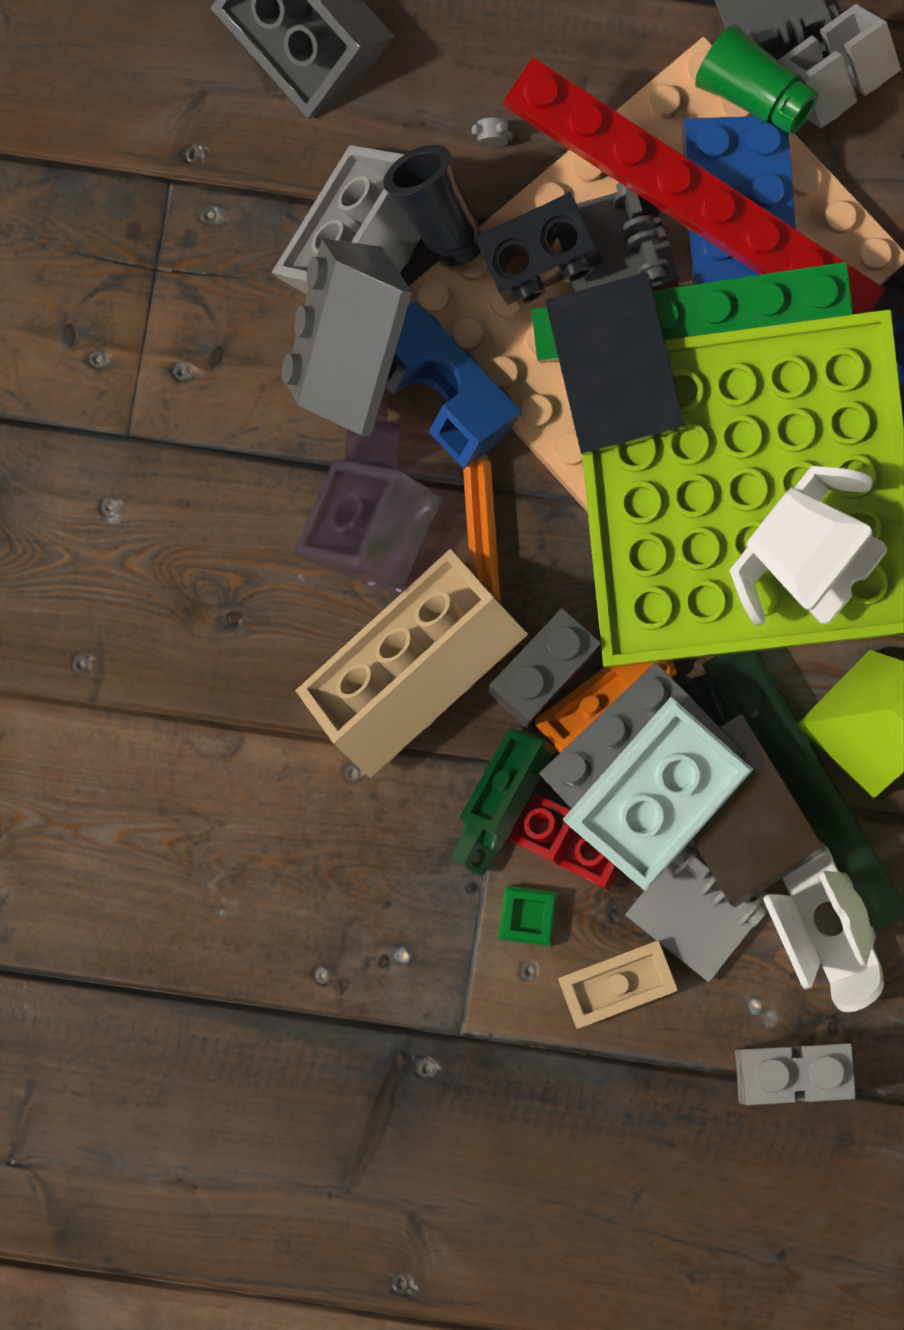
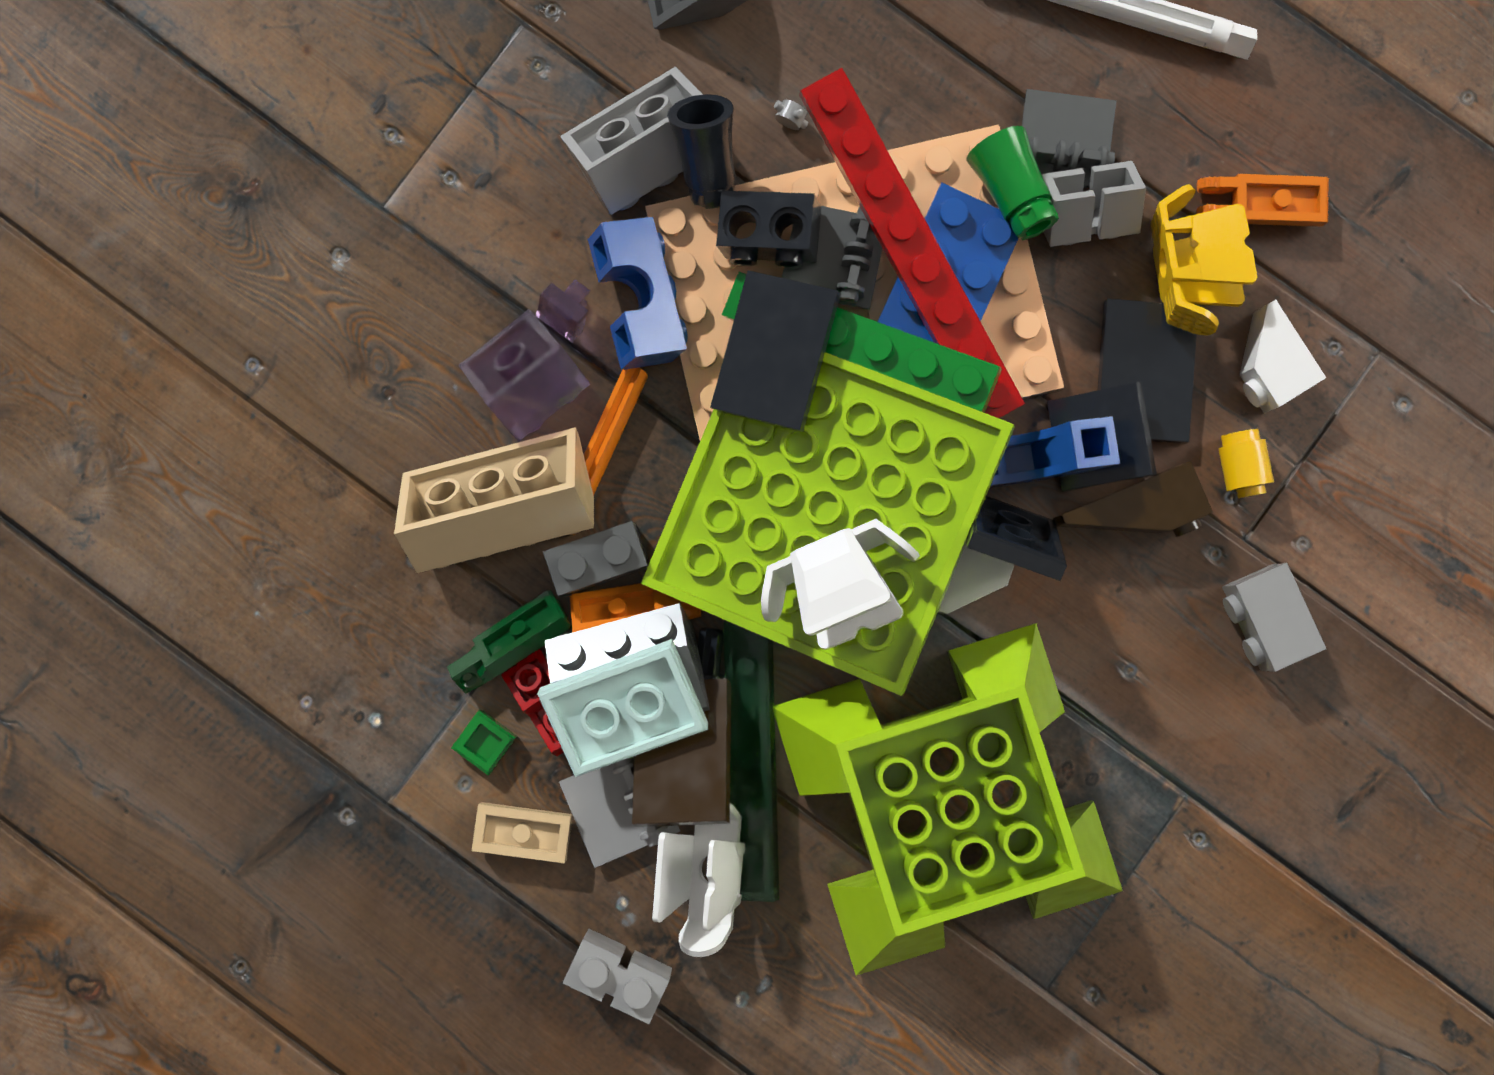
camera: 30 degrees right, 5 degrees up
(346, 334) = (576, 213): dark grey slope -> none

